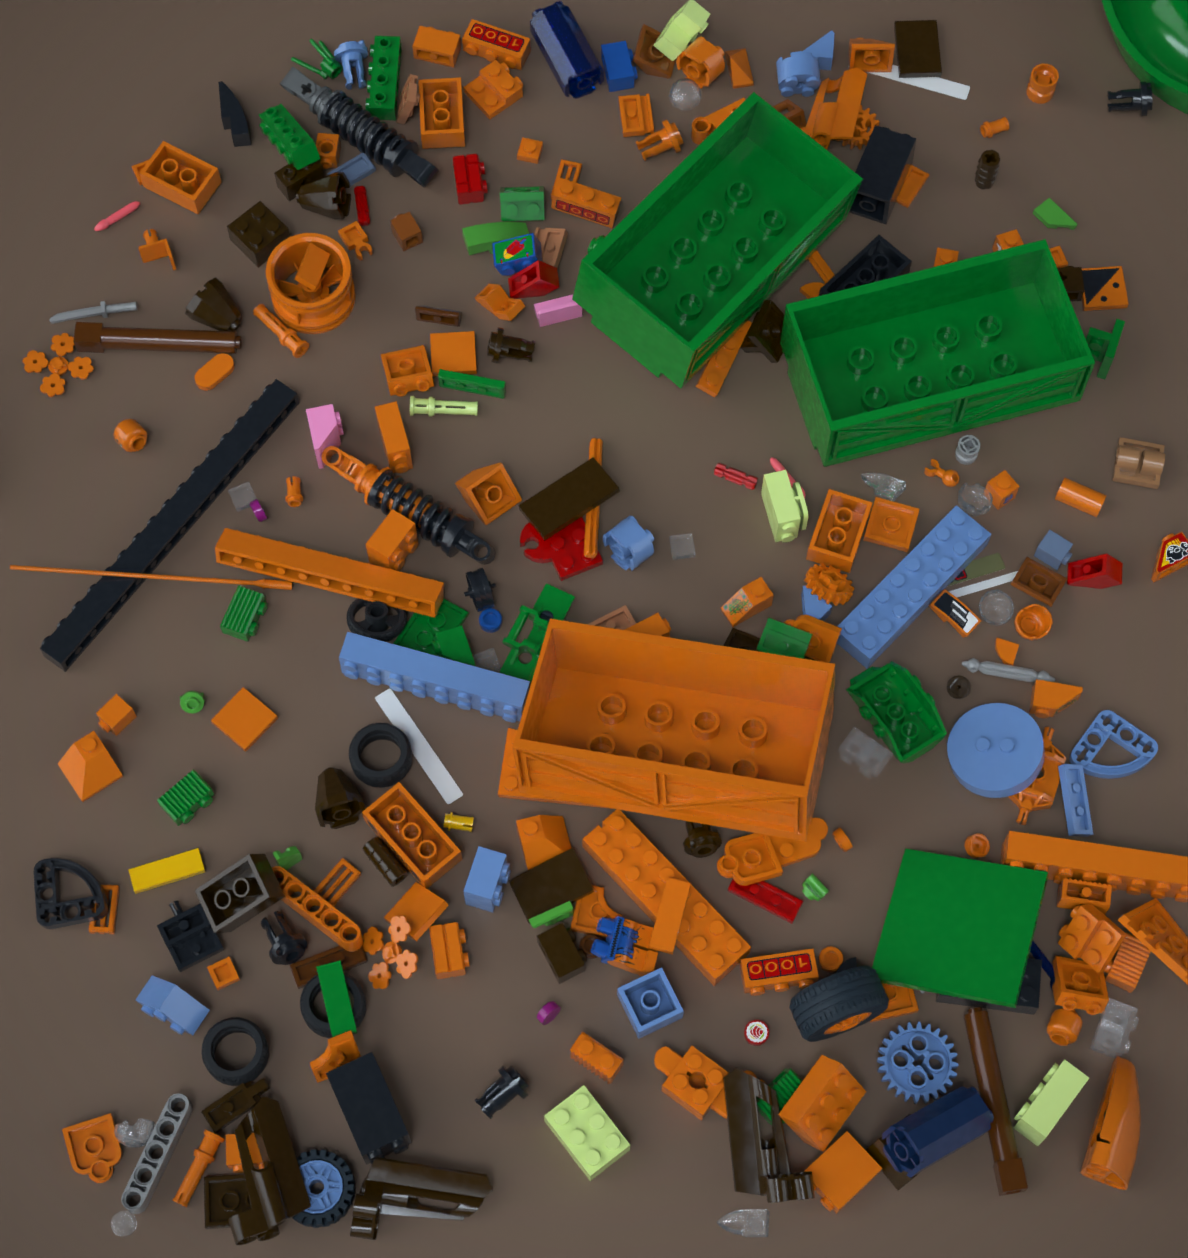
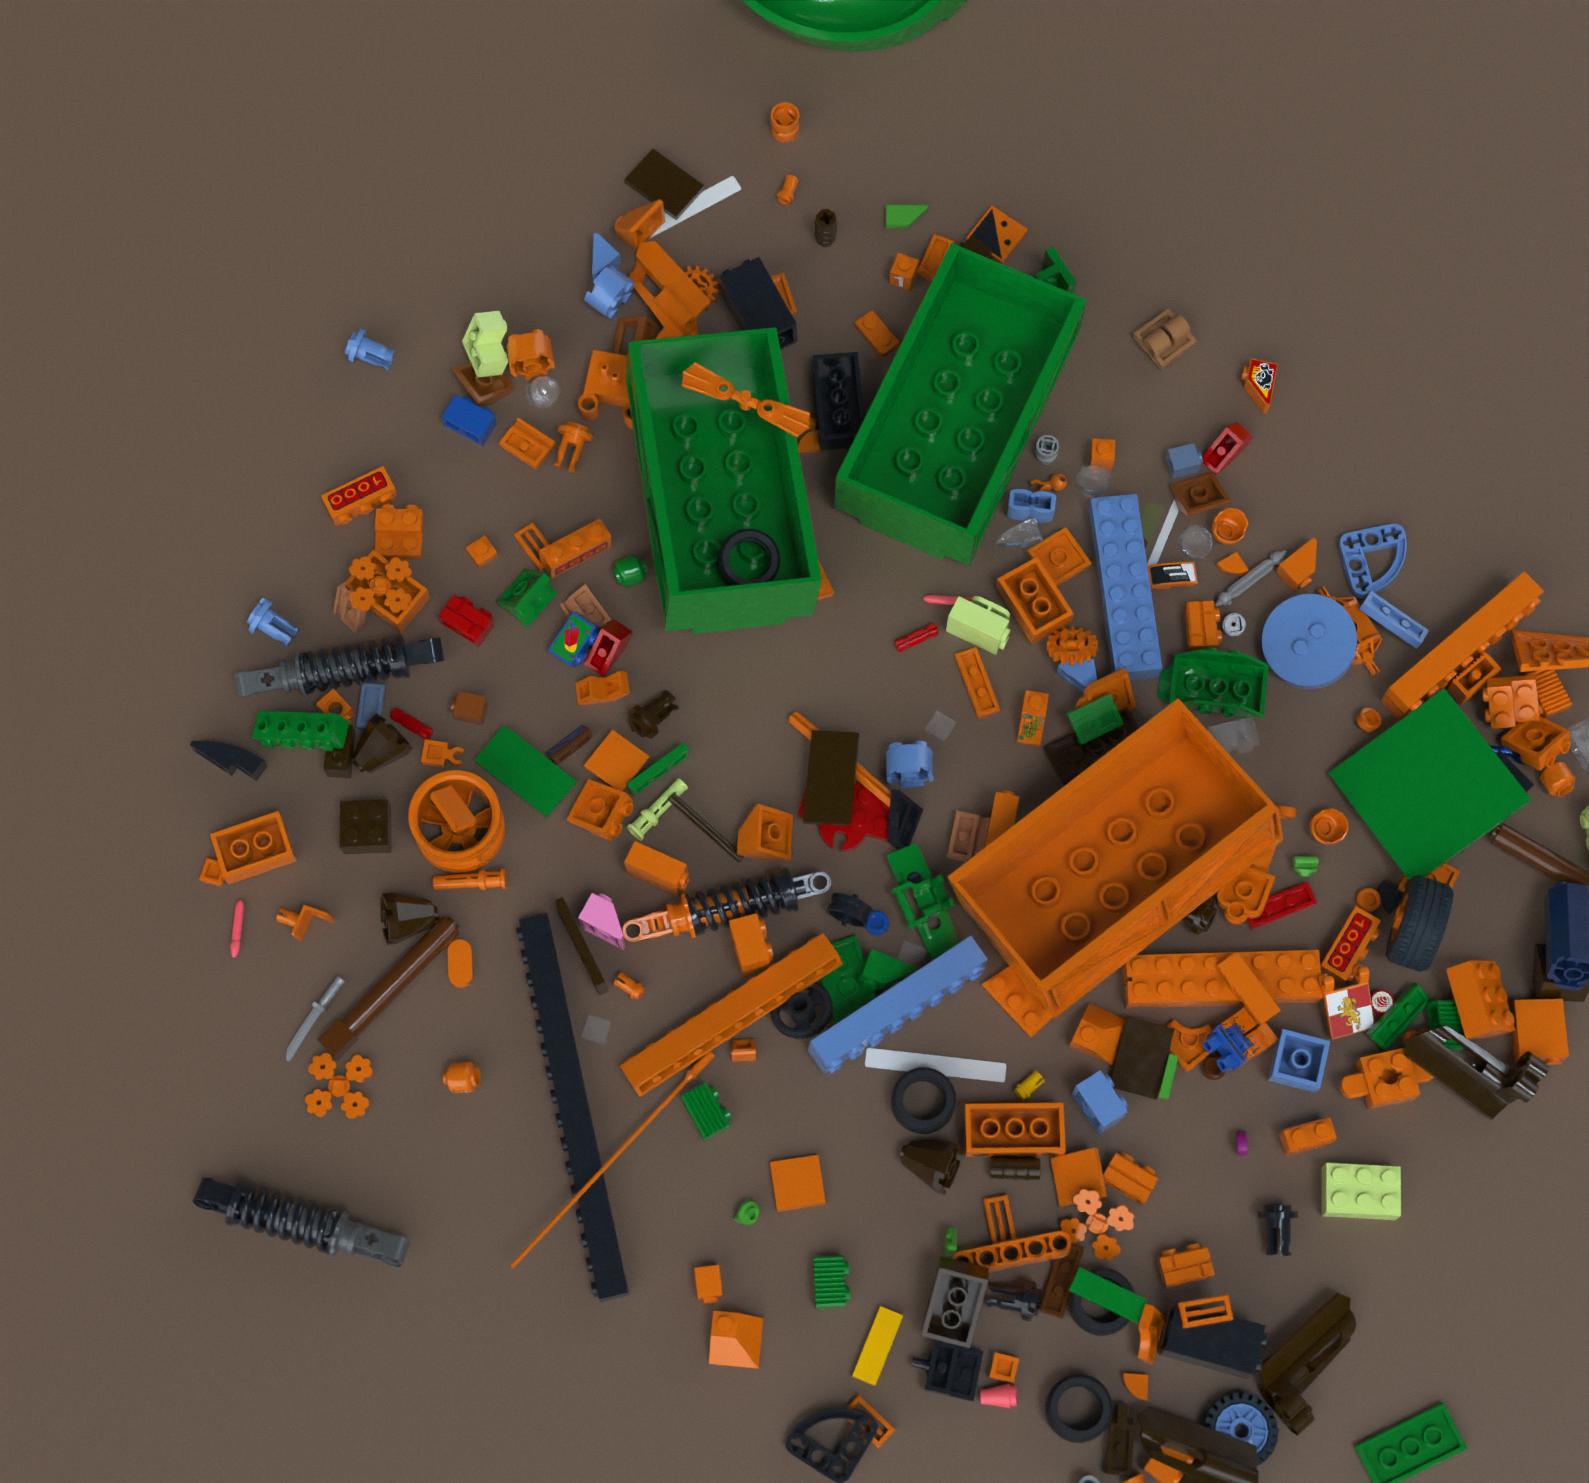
camera: 50 degrees left, 5 degrees up
(173, 1004) = (1000, 1429): medium blue brick -> none
(199, 987) = (1001, 1396): none -> coral cone
(258, 510) = (622, 1027): magenta tile -> none
(290, 435) = (581, 946): none -> dark brown tile
(291, 1083) = (1137, 1385): none -> orange tile
(312, 604) = (743, 1050): none -> orange slope
(330, 67) = (254, 642): green plant -> none
(385, 77) = (307, 608): green brick -> none
(393, 303) = (525, 771): none -> green tile
(396, 1091) = (1184, 1315): none -> orange tile
(413, 1045) = (1185, 1266): none -> orange brick
(436, 46) = (316, 543): orange brick -> none
(436, 99) = (380, 585): none -> orange plant
(457, 446) = (705, 827): none -> dark brown bar
(480, 237) = (536, 647): bright green slope -> none
(557, 310) = (648, 649): bright pink panel -> none
(561, 952) = (1202, 1094): dark brown brick -> none
(566, 50) = (420, 446): clear blue brick -> none
(583, 573) = (903, 819): none -> black wing
(679, 282) = (757, 537): none -> black tyre
(726, 1007) = (1347, 1007): none -> flag
(739, 68) = (556, 330): orange slope -> none
(740, 545) = (977, 683): none -> orange tile
(746, 1222) = (1521, 1131): clear plate -> none
(755, 1054) = (1398, 1016): none -> green tile
(766, 332) = (822, 509): dark brown bracket -> none
(796, 231) = (783, 416): none -> orange piece
(860, 880) = (1329, 826): none -> orange hair
(907, 467) = (1026, 505): none -> medium blue brick
(933, 1049) = (1502, 926): medium blue gear -> none
(935, 664) = (1201, 625): none -> orange brick
(1080, 497) = (1155, 403): orange brick -> none
(1140, 97) = (863, 67): black piece -> none

